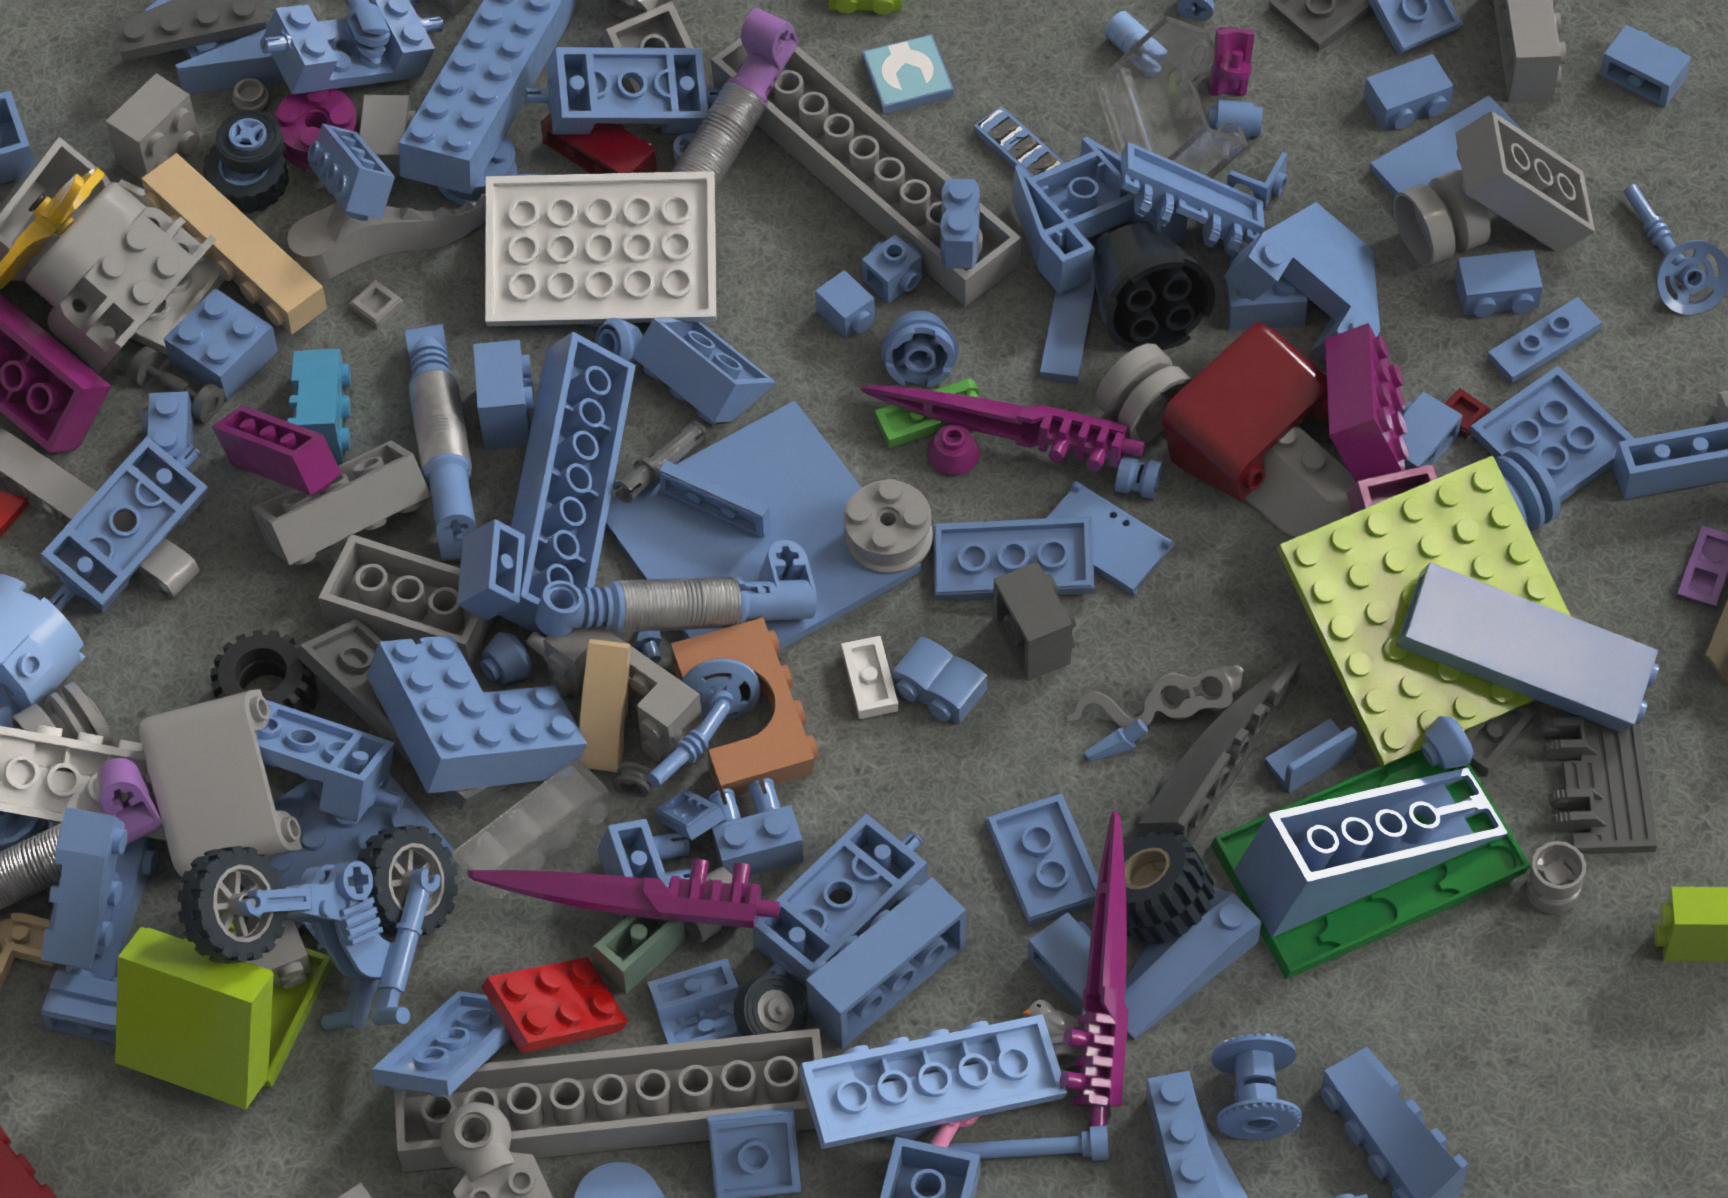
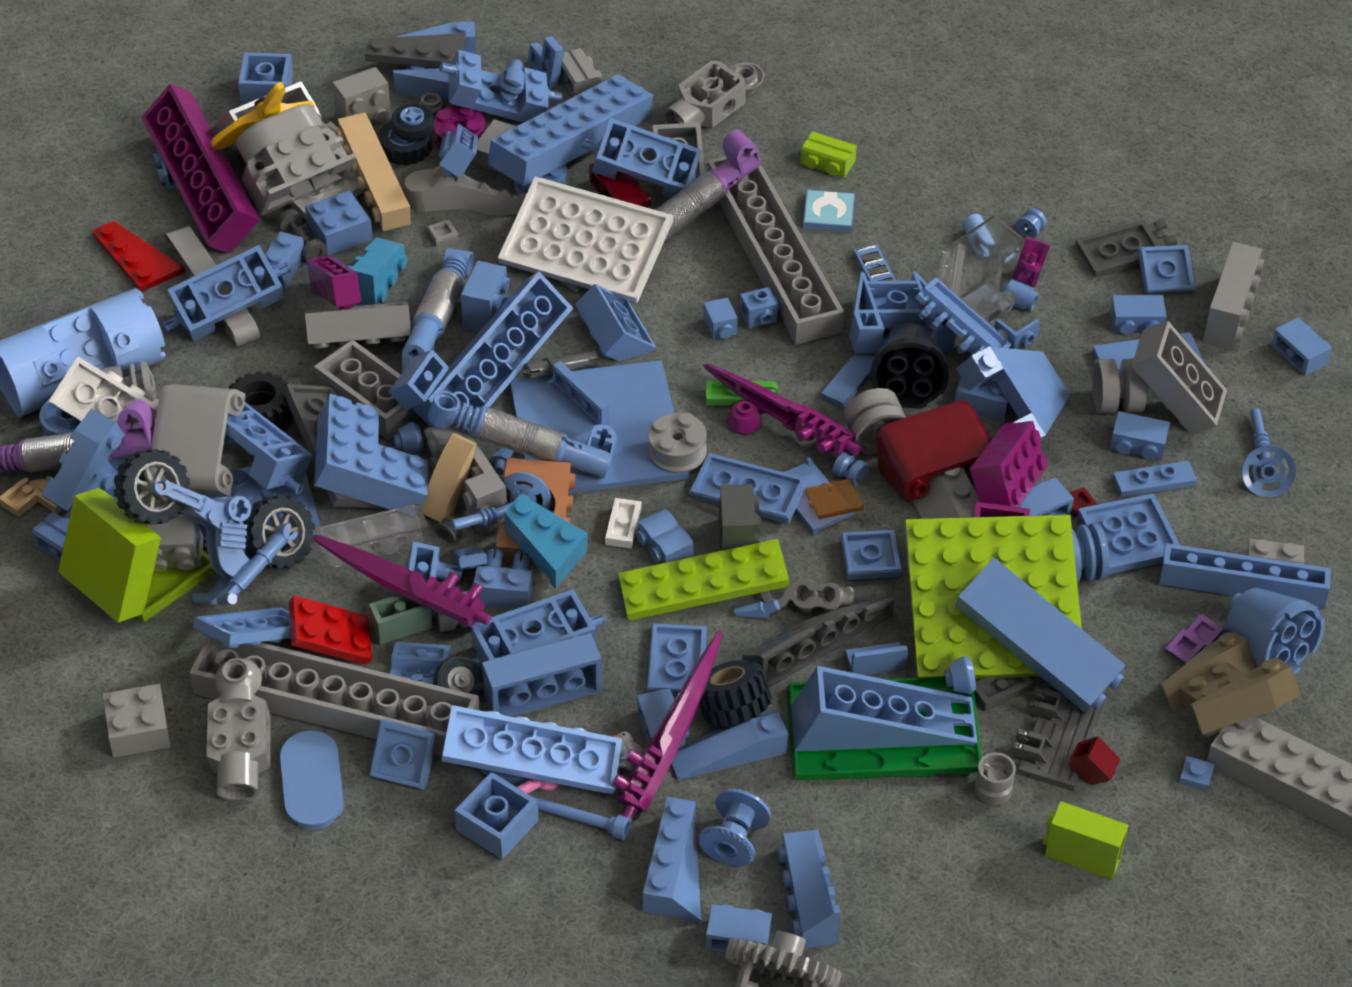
camera: 20 degrees right, 10 degrees down
(619, 338) = (572, 292): medium blue cone -> none
(790, 750) = (546, 538): none -> dark azure wedge
(919, 349) = (750, 354): medium blue cone -> none
(960, 223) = (806, 288): medium blue brick -> none
(1025, 725) = (703, 579): none -> lime plate
(1140, 533) = (834, 499): none -> clear orange piece
(1227, 599) = (870, 555): none -> medium blue plate
(1670, 801) = (1094, 761): none -> dark red brick

